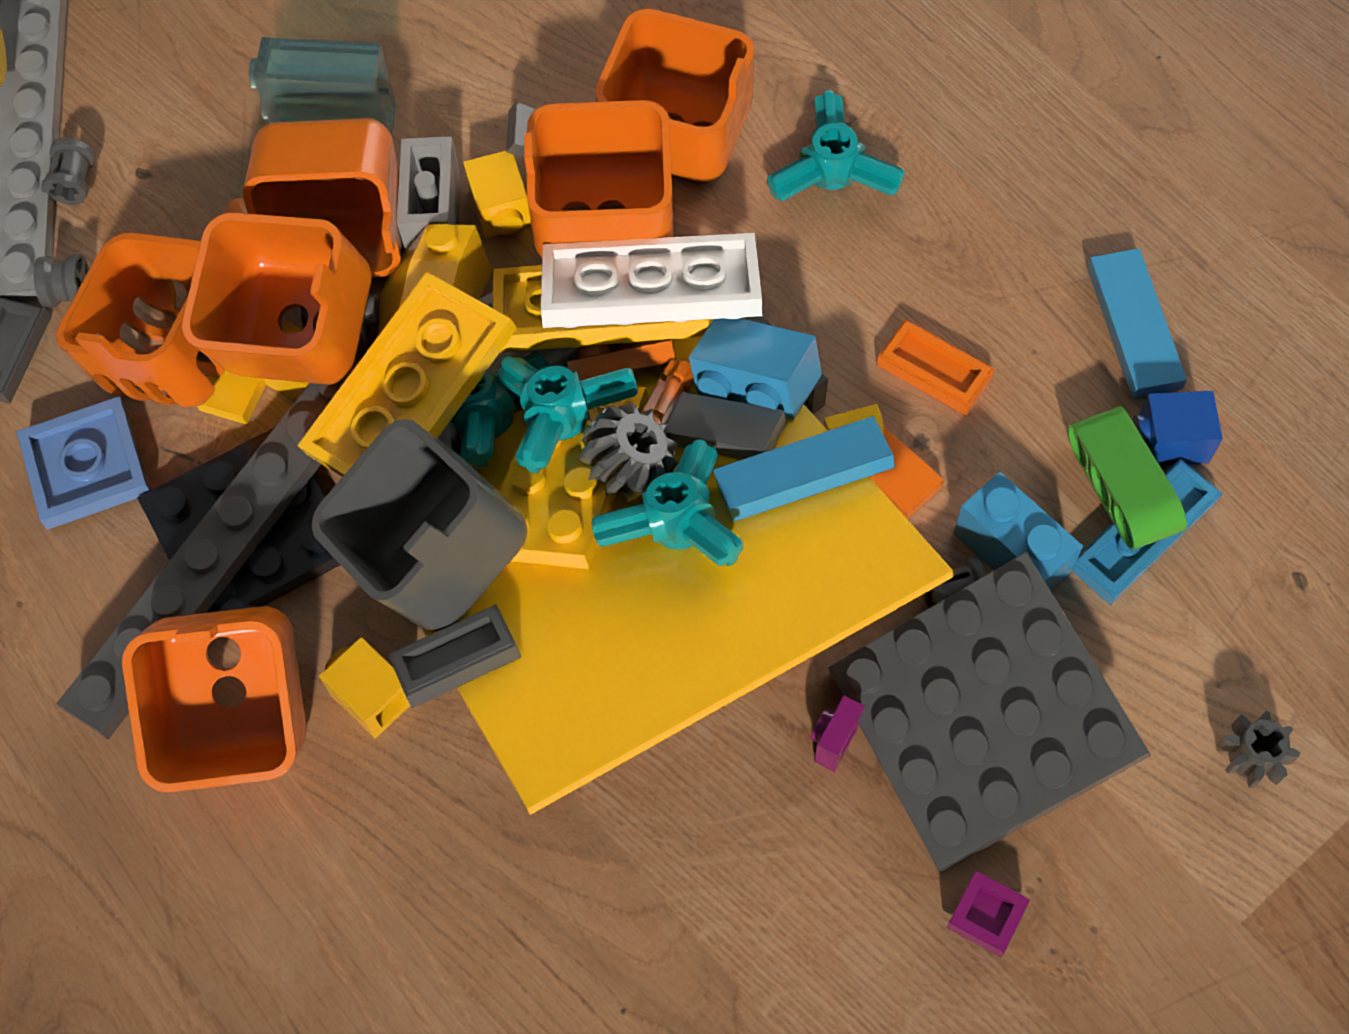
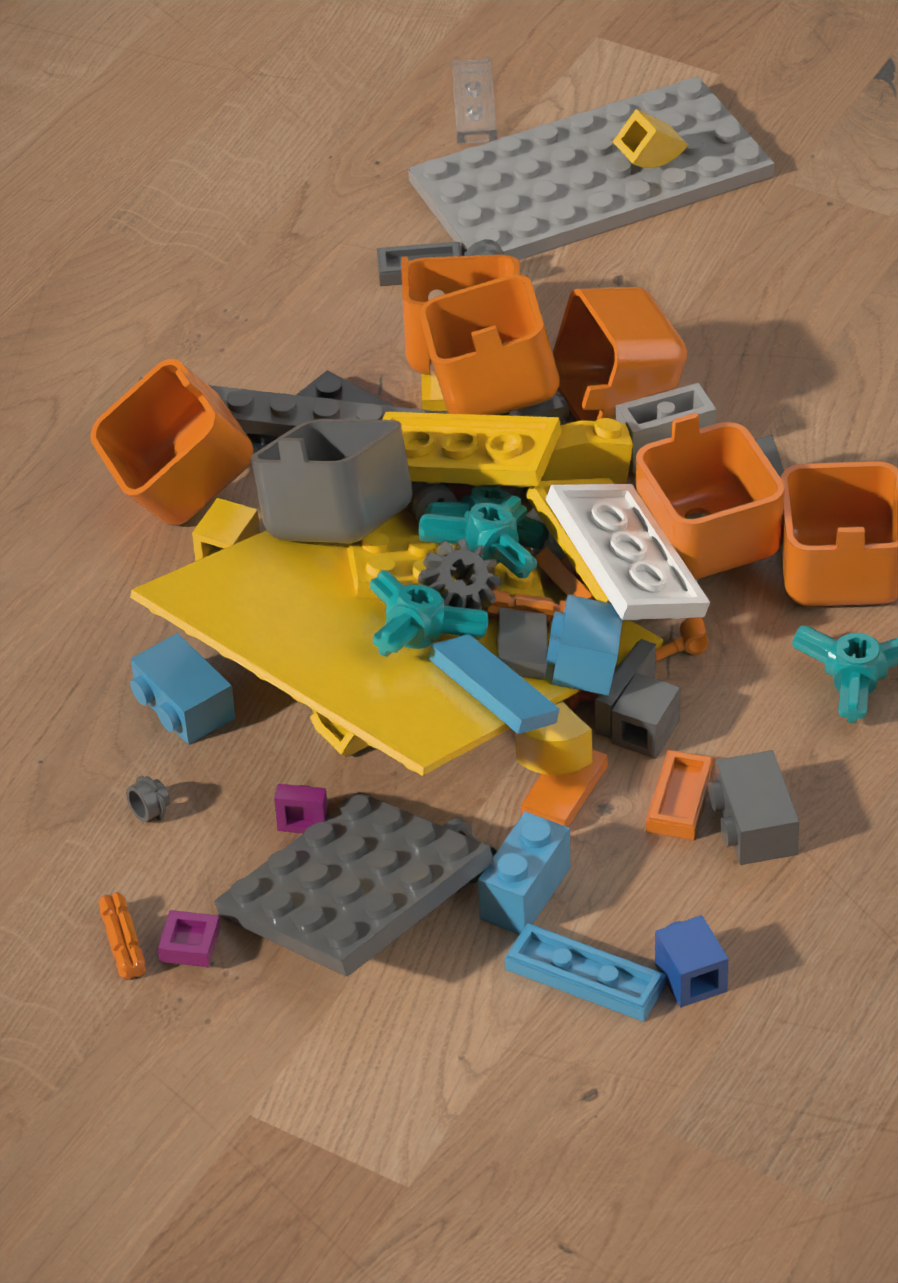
camera: 70 degrees right, 20 degrees down
(68, 170) = (588, 234): dark grey bush -> none
(83, 462) = (343, 333): medium blue plate -> none
(322, 81) = (730, 334): clear light blue brick -> none
(454, 656) = (247, 539): dark grey tile -> none
(602, 815) = (182, 689): none -> dark azure brick
(752, 899) = (148, 798): none -> dark grey plate
(842, 354) = (646, 715): none -> dark grey brick
(951, 989) = (122, 936): none -> orange axle
(993, 304) = (754, 807): none -> dark grey brick
(1127, 478) = (612, 925): bright green beam -> none
(1136, 323) = (798, 918): dark azure tile -> none
(1262, 733) = (400, 1077): dark grey gear -> none

